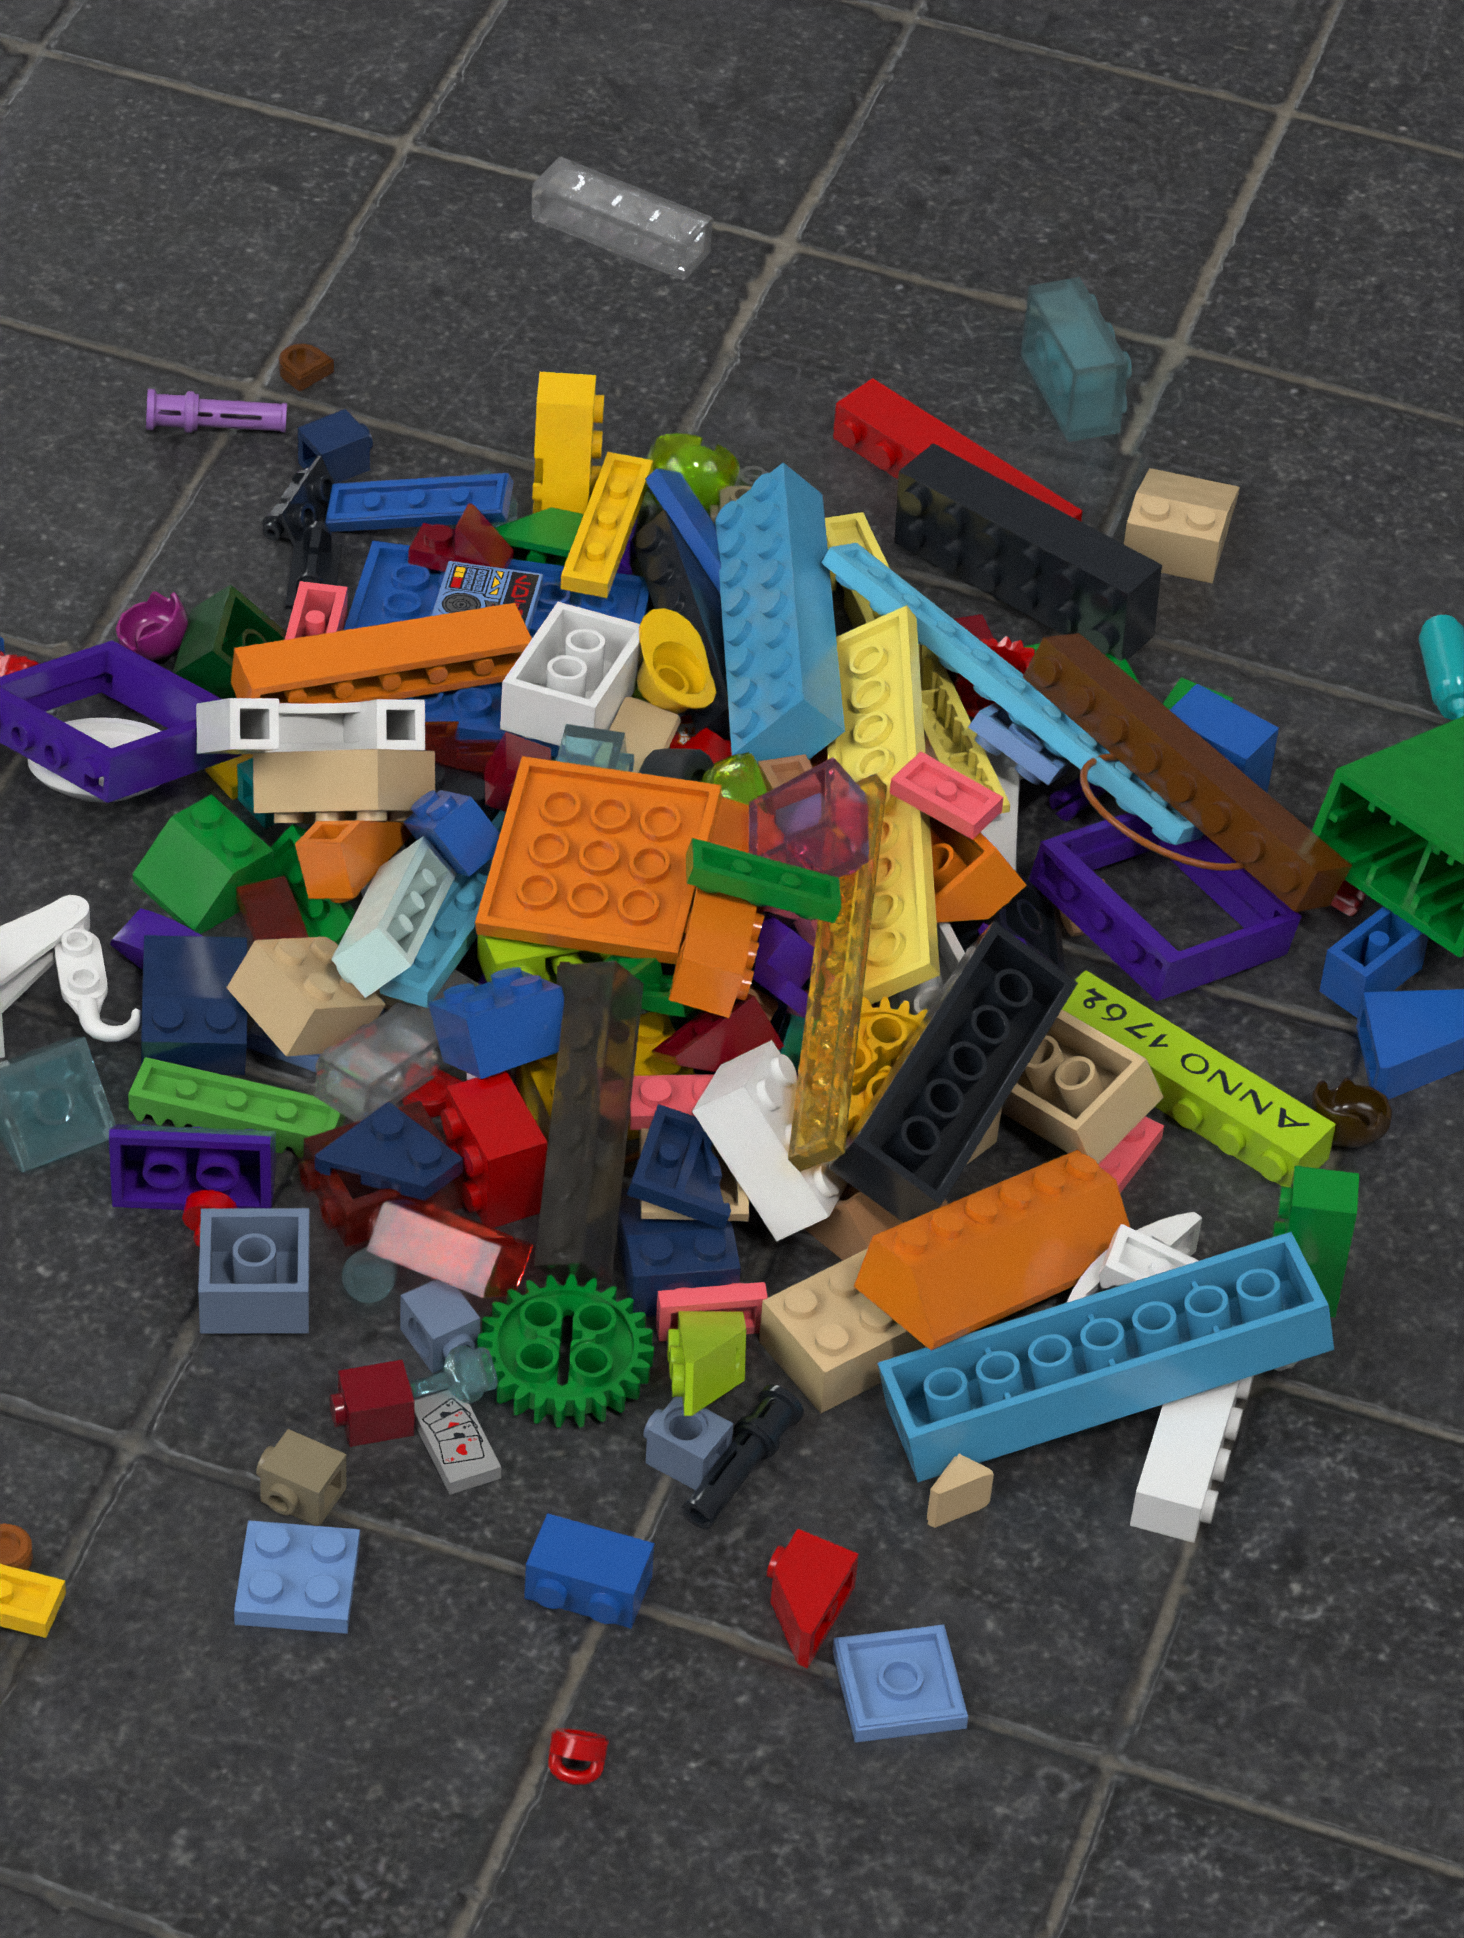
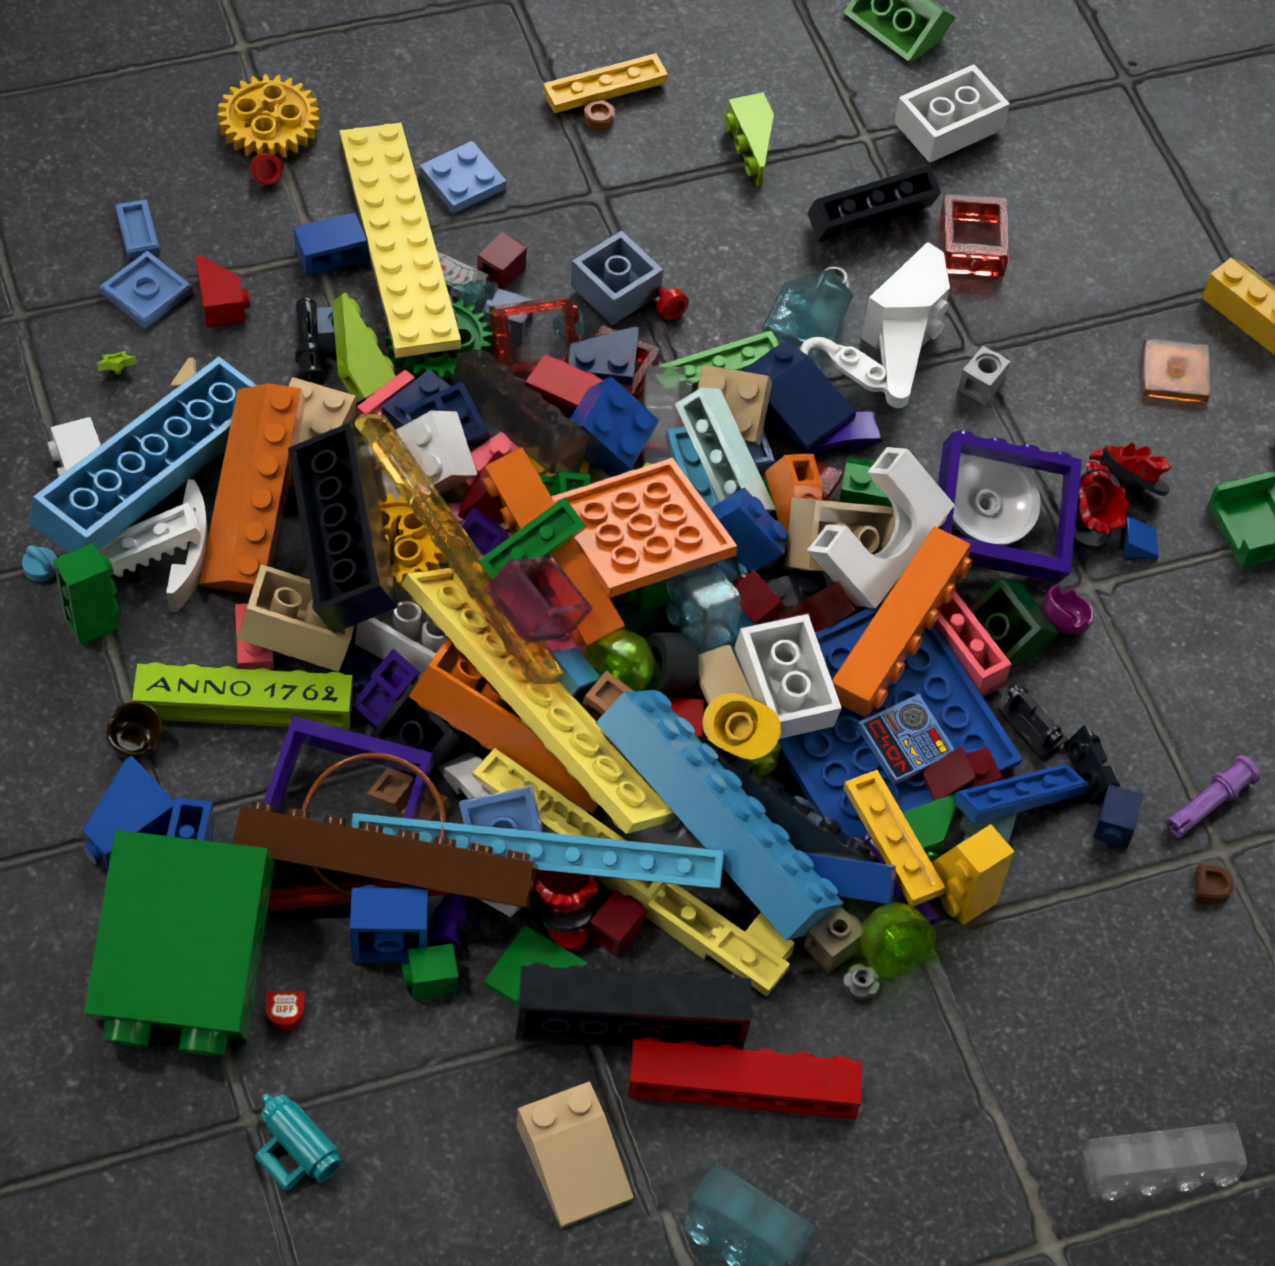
camera: 140 degrees right, 10 degrees up
(166, 1164) = (702, 310): dark purple slope -> none
(301, 1477) = (501, 209): dark tan brick -> none
(485, 1516) = (399, 241): none -> light yellow plate
(498, 1833) = (268, 116): none -> yellow gear
(839, 1786) = (137, 228): none -> medium blue tile
(946, 795) = (484, 675): coral plate -> none
(1028, 1588) = (116, 362): none -> lime piece
(1324, 1386) = (39, 564): none -> medium azure tile

